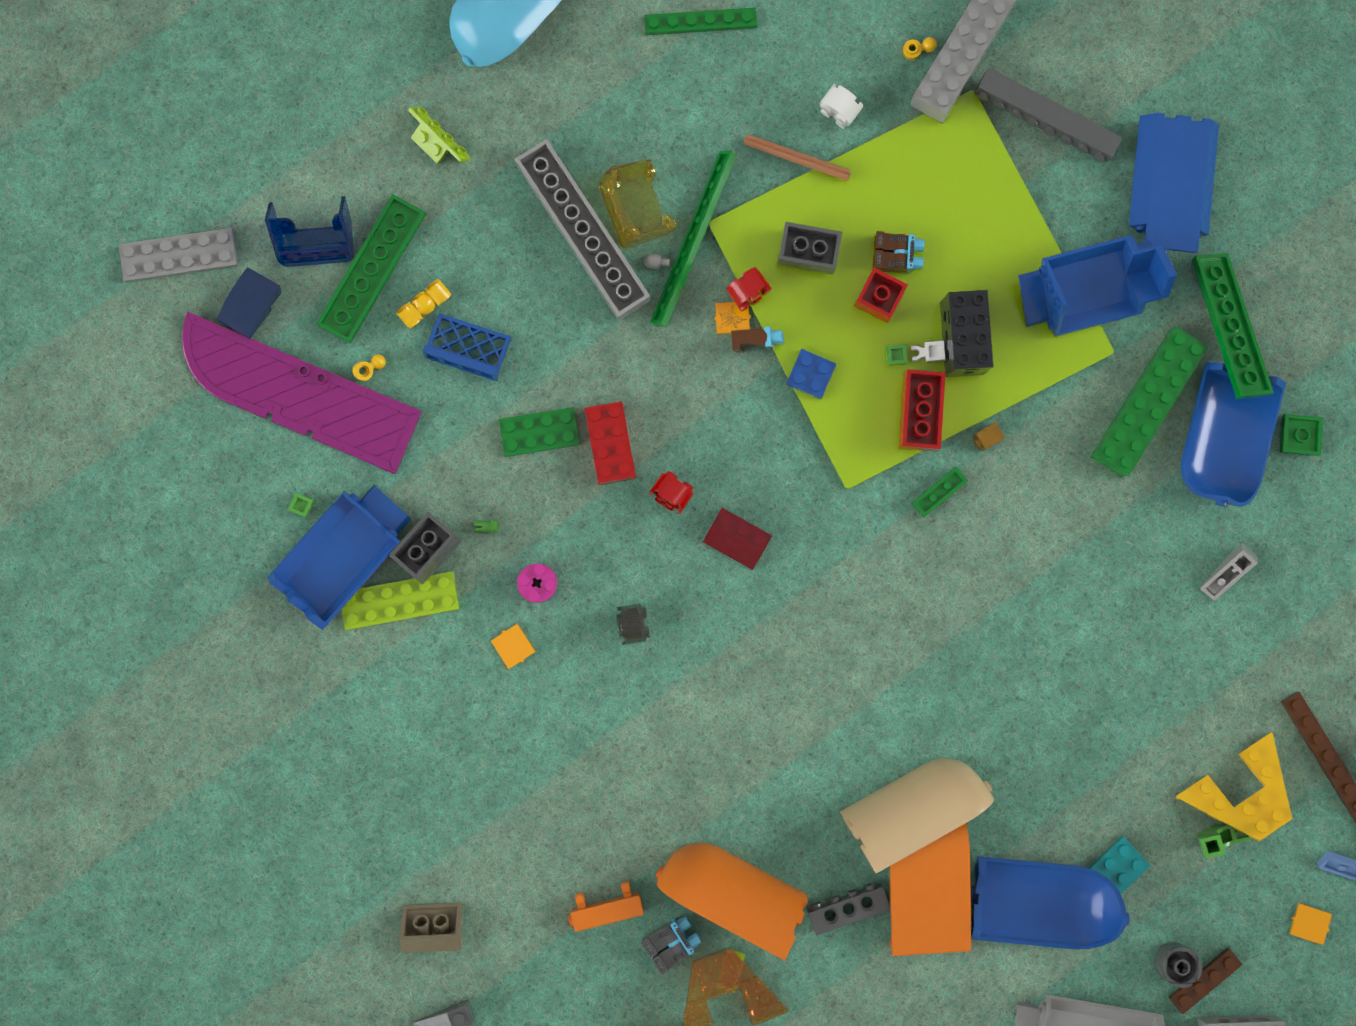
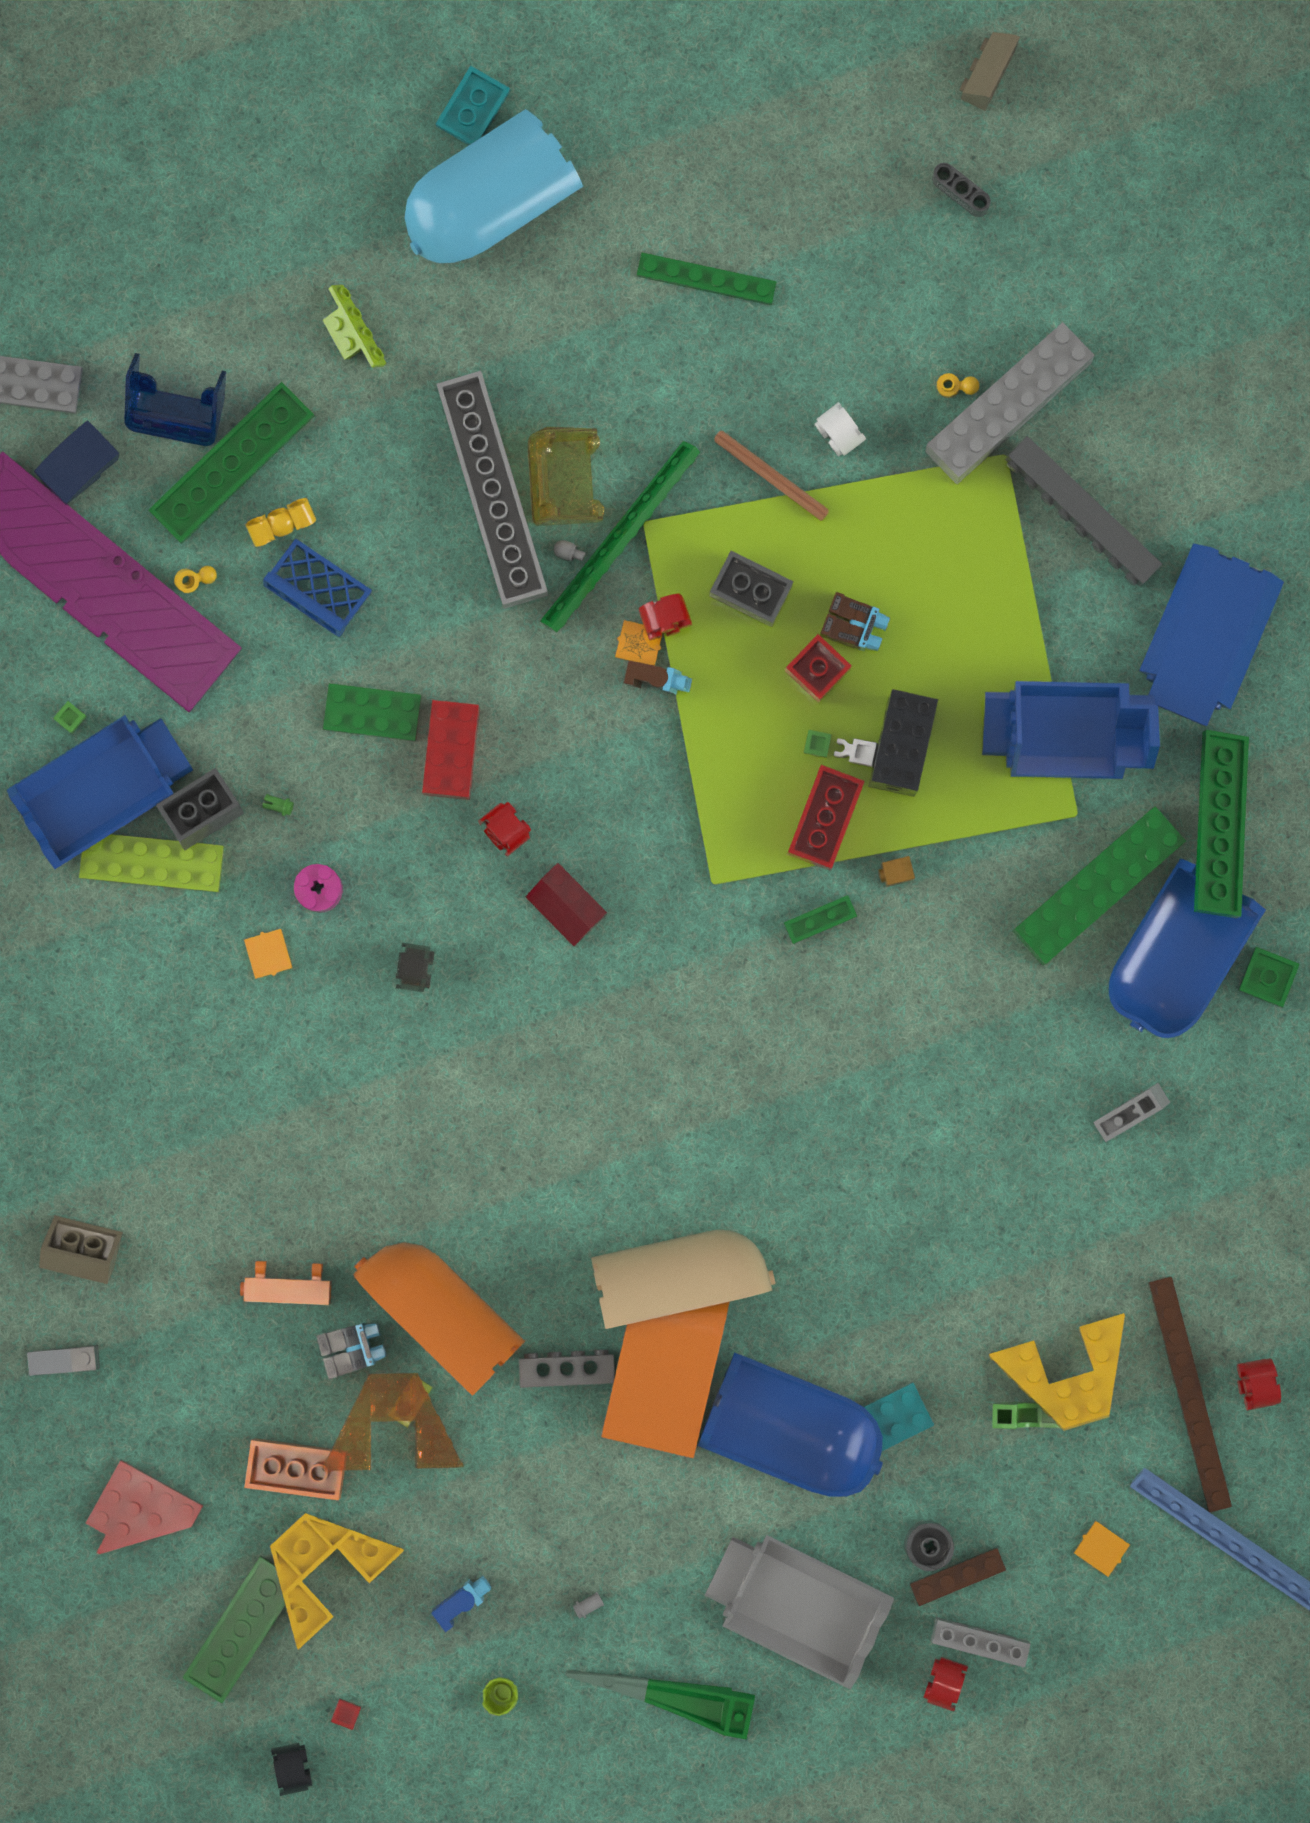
camera: 20 degrees right, 0 degrees up
(811, 374) = (710, 736): blue plate -> none

